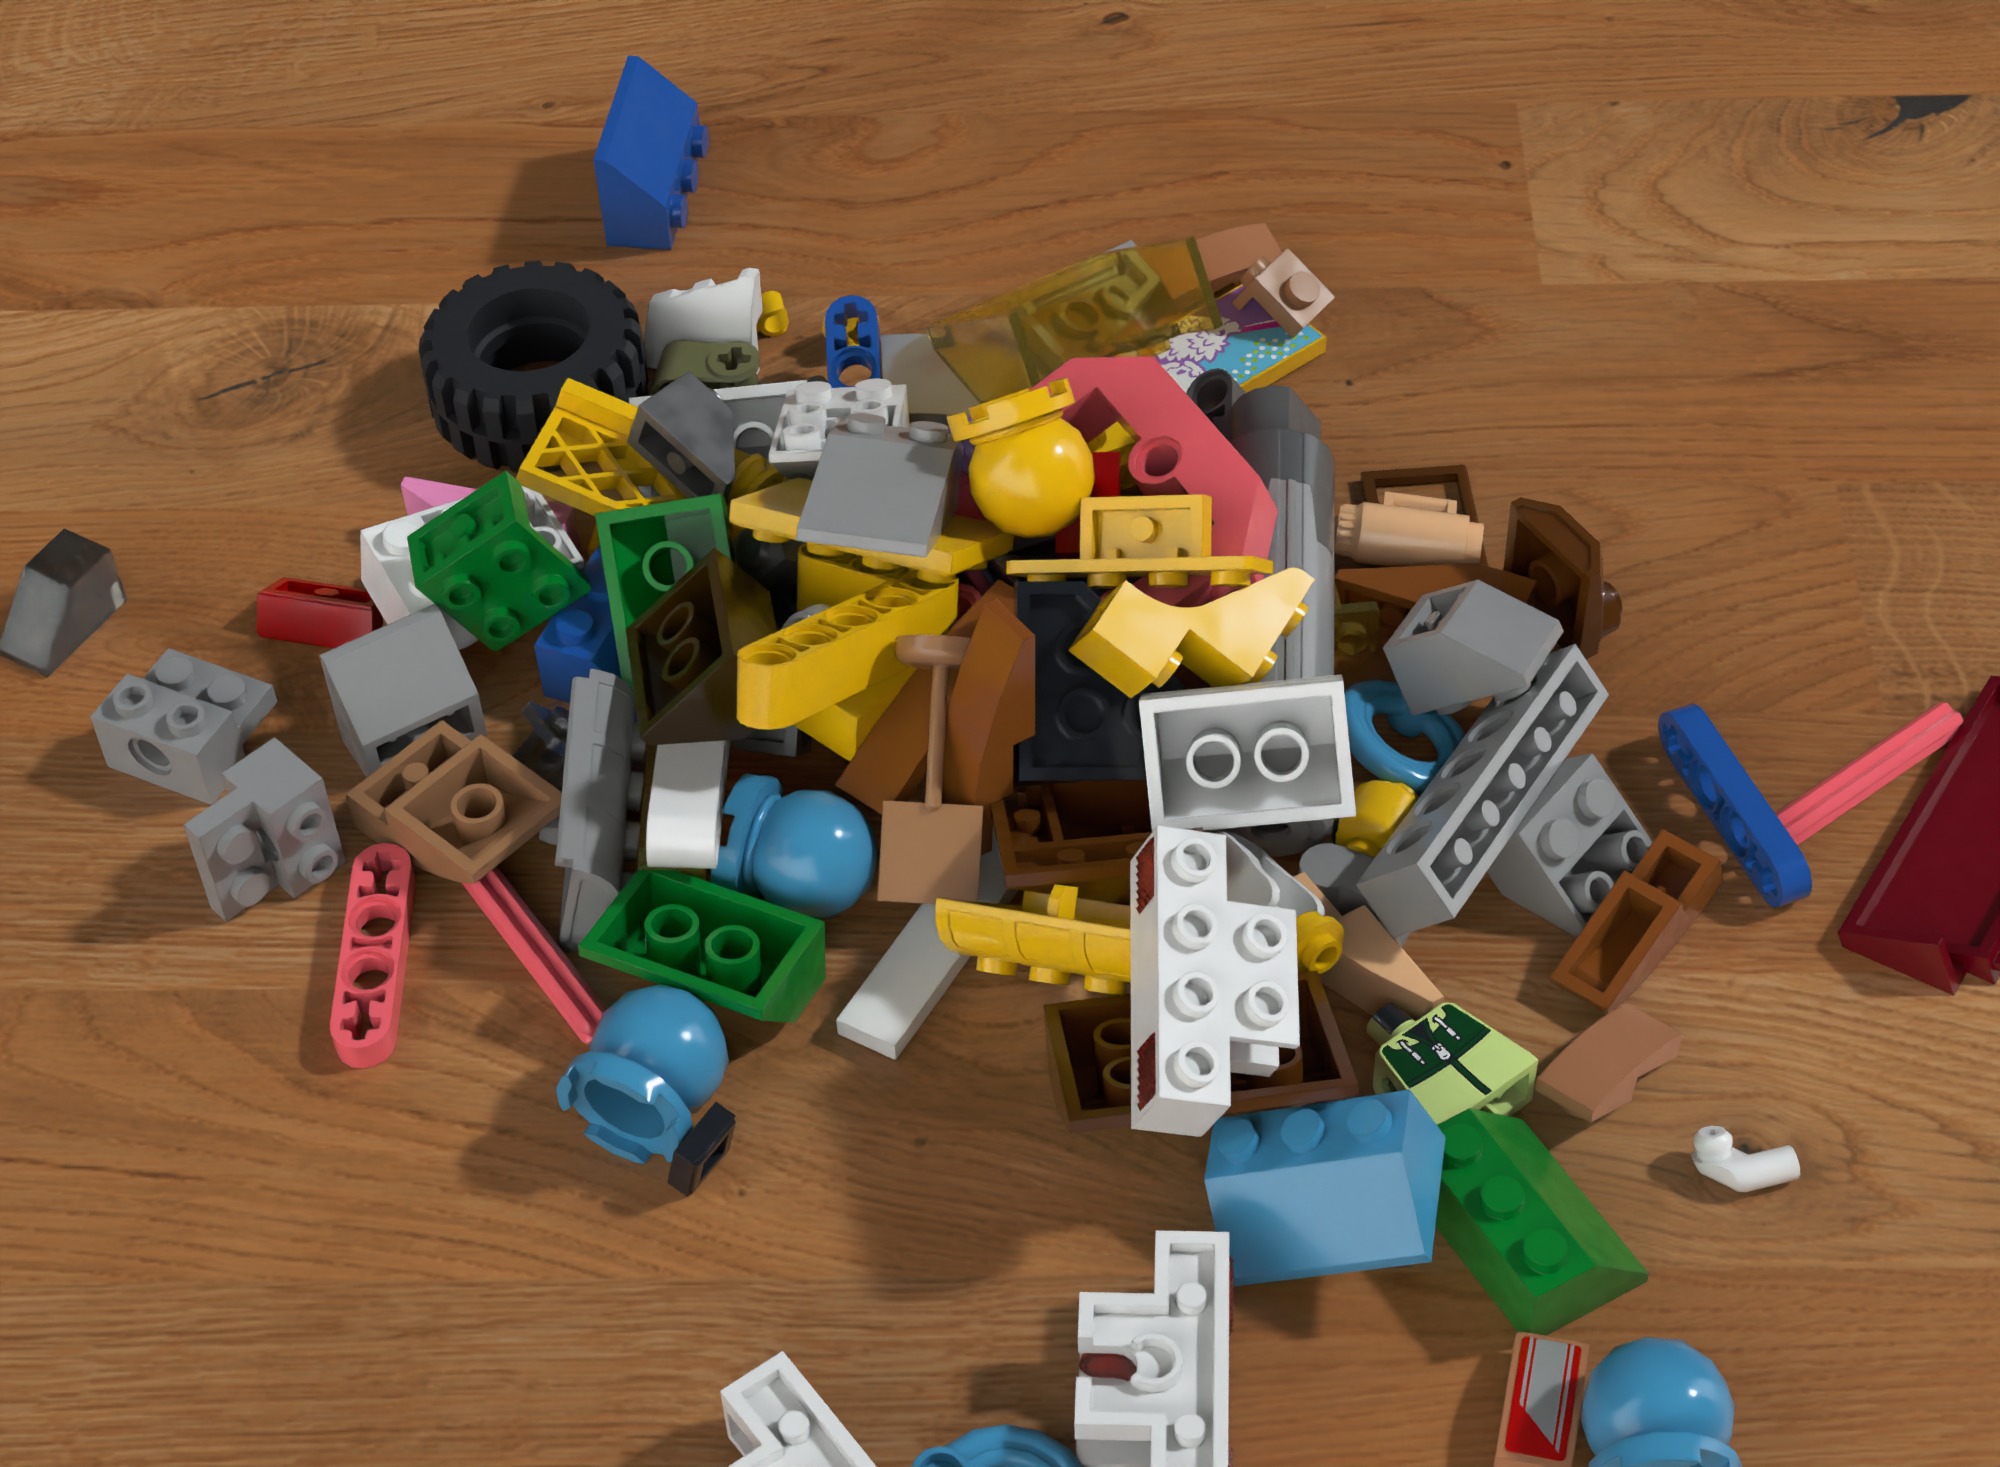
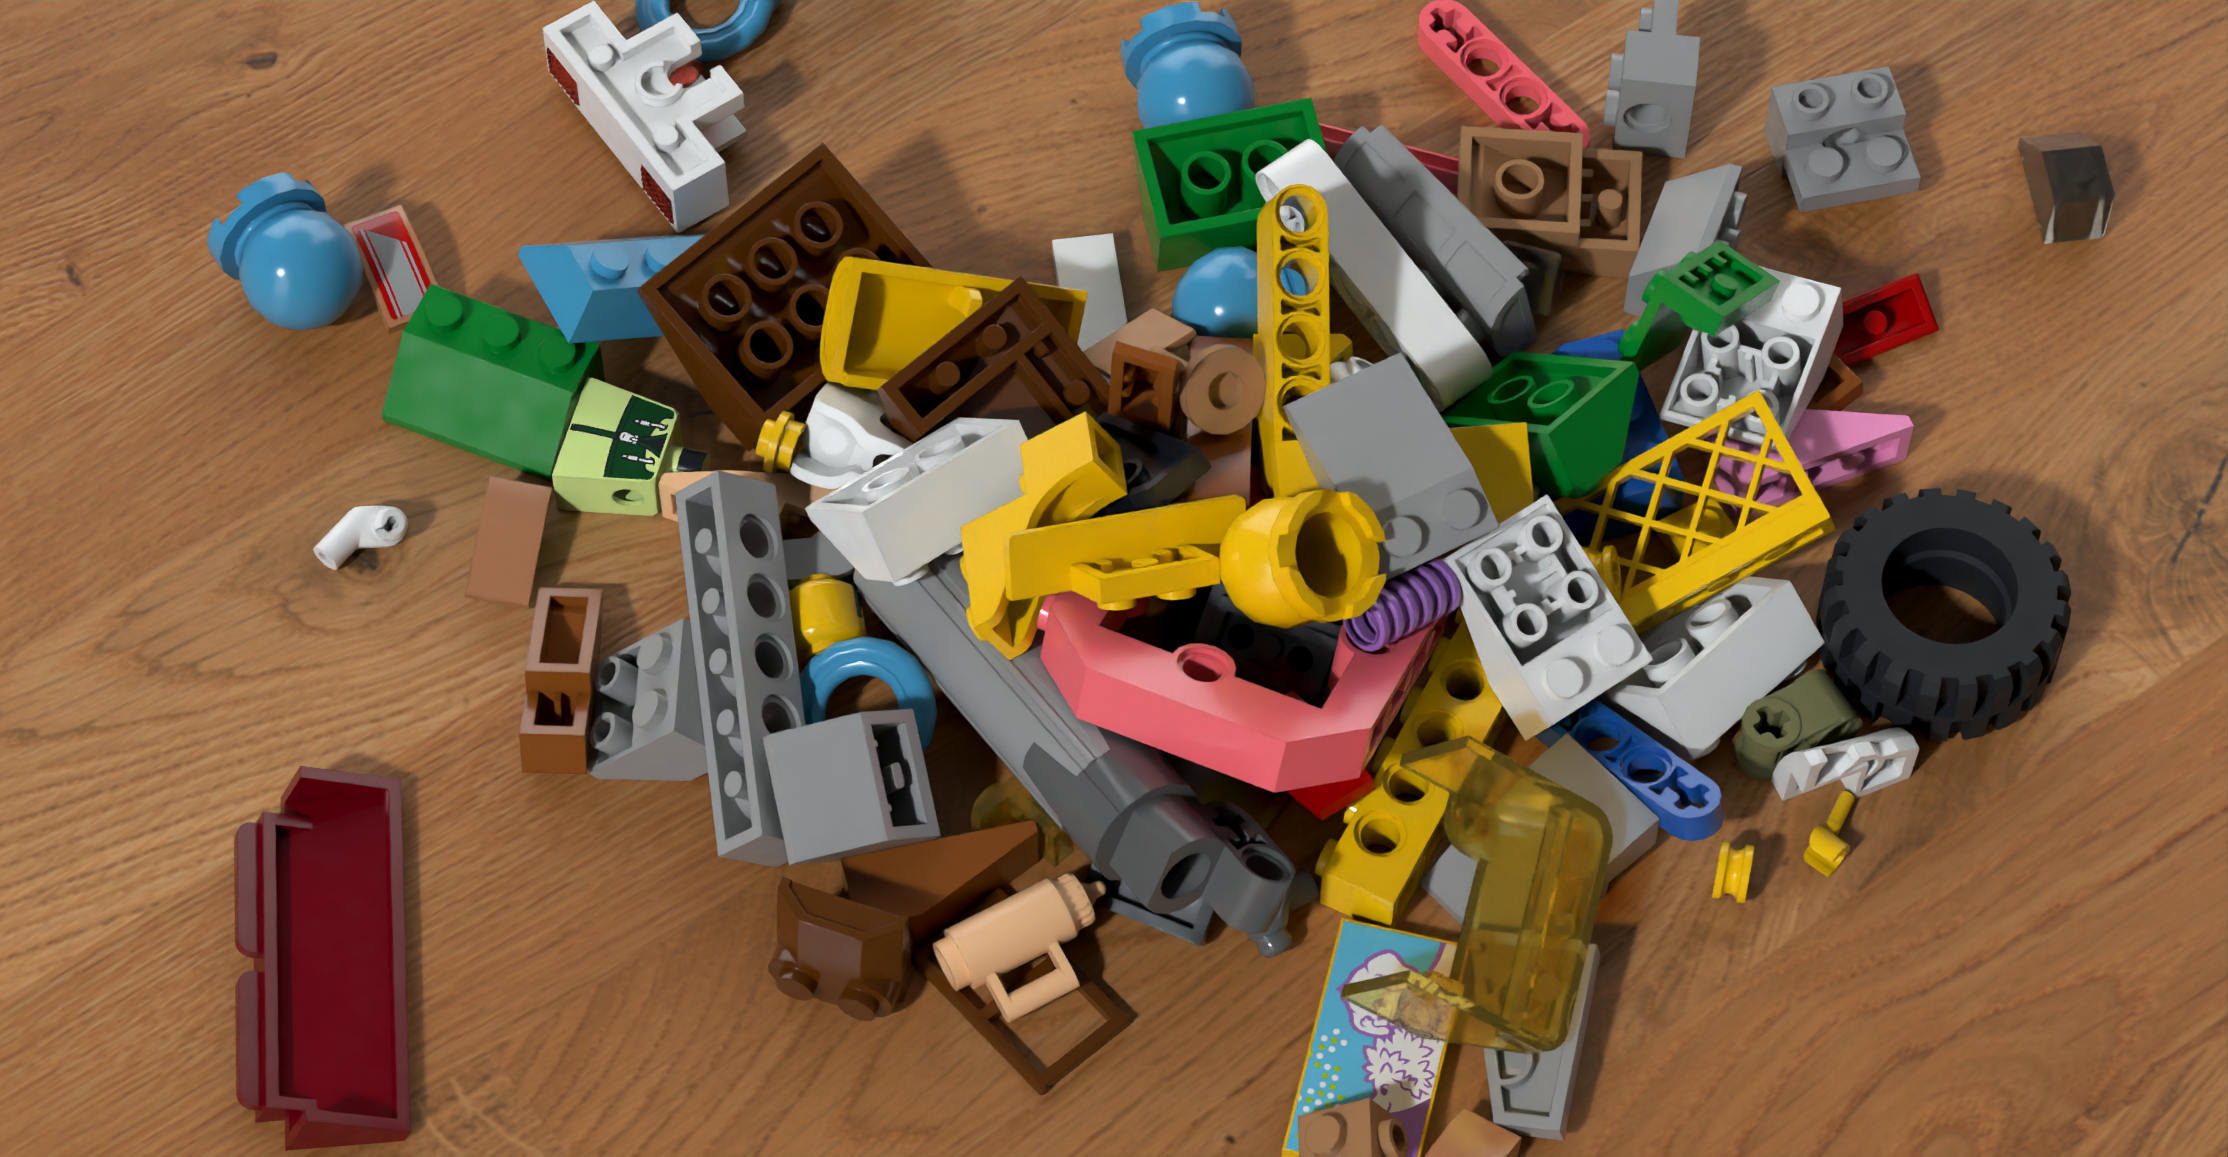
camera: 140 degrees right, 10 degrees up
(648, 159) = (2112, 918): blue slope -> none
(687, 437) = (1668, 535): flat silver slope -> none
(688, 653) = (1409, 299): dark brown slope -> none
(702, 1149) = (1112, 82): black tile -> none
(1206, 983) = (781, 229): white piece -> none
(1735, 805) = (555, 839): blue beam -> none
(1870, 772) = (463, 951): coral axle -> none

